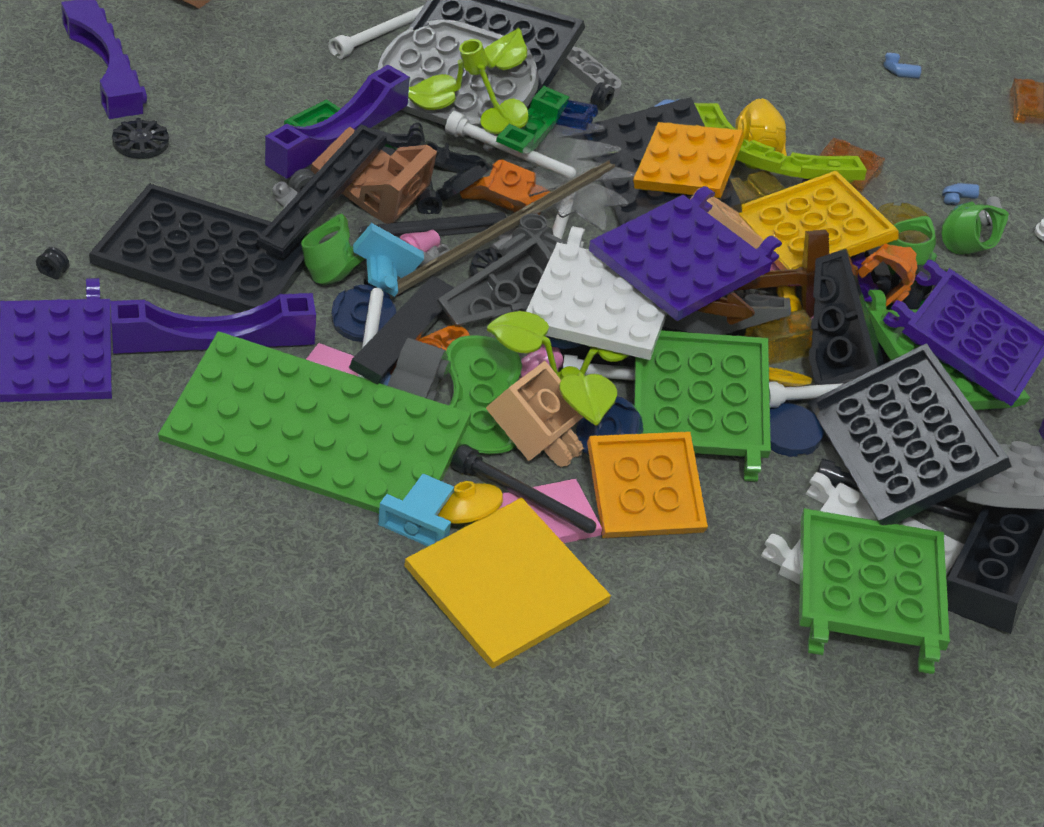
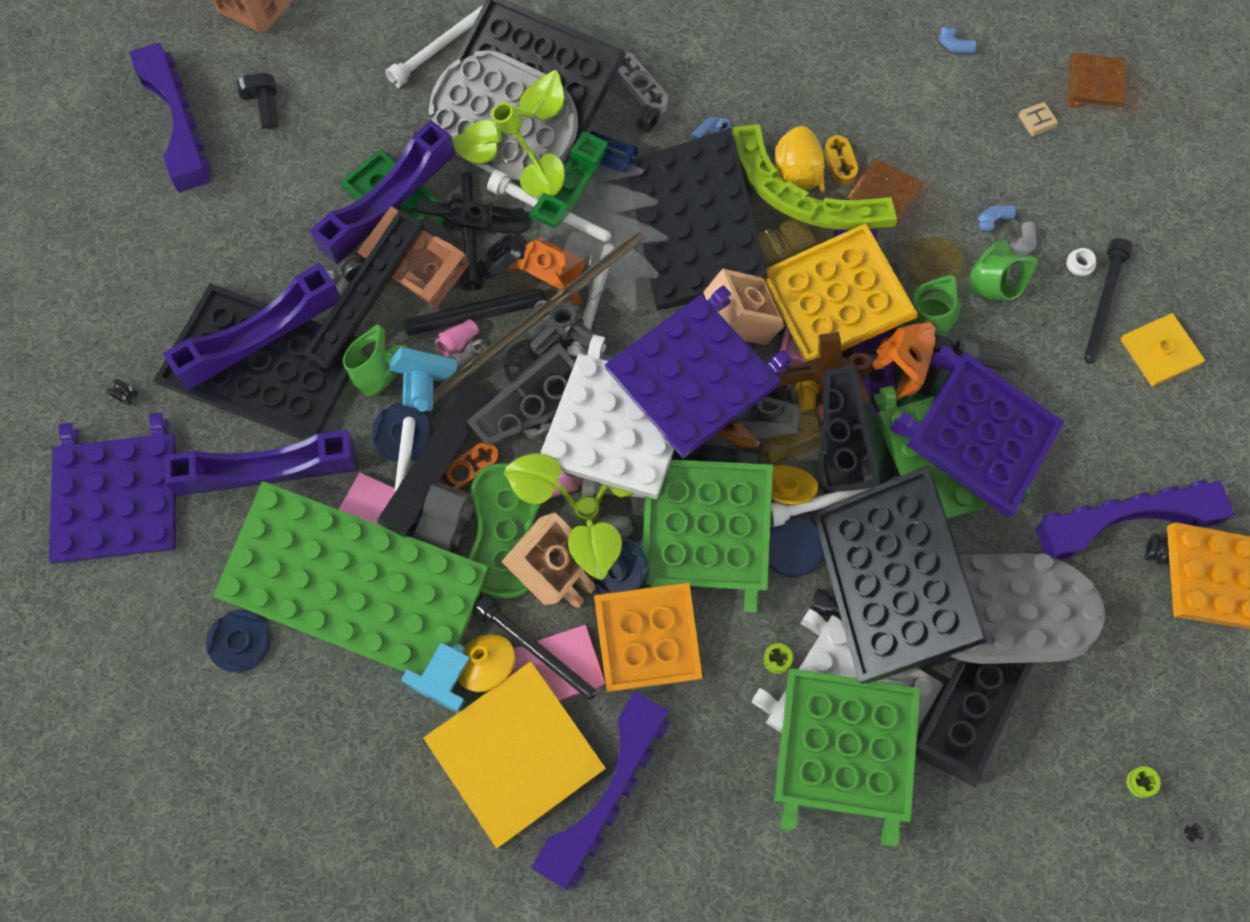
camera: 10 degrees right, 25 degrees up
(140, 138) = (205, 218): black wheel -> none
(147, 229) = (208, 355): none -> dark purple arch
(179, 484) = (246, 647): none -> dark blue tile
(200, 46) = (263, 88): none -> black piece
(573, 663) = (566, 851): none -> dark purple arch
(688, 158) = (720, 218): light orange plate -> none
(780, 522) = (783, 650): none -> lime bush
(799, 136) = (835, 161): none -> yellow beam
(989, 127) = (1038, 119): none -> tan tile

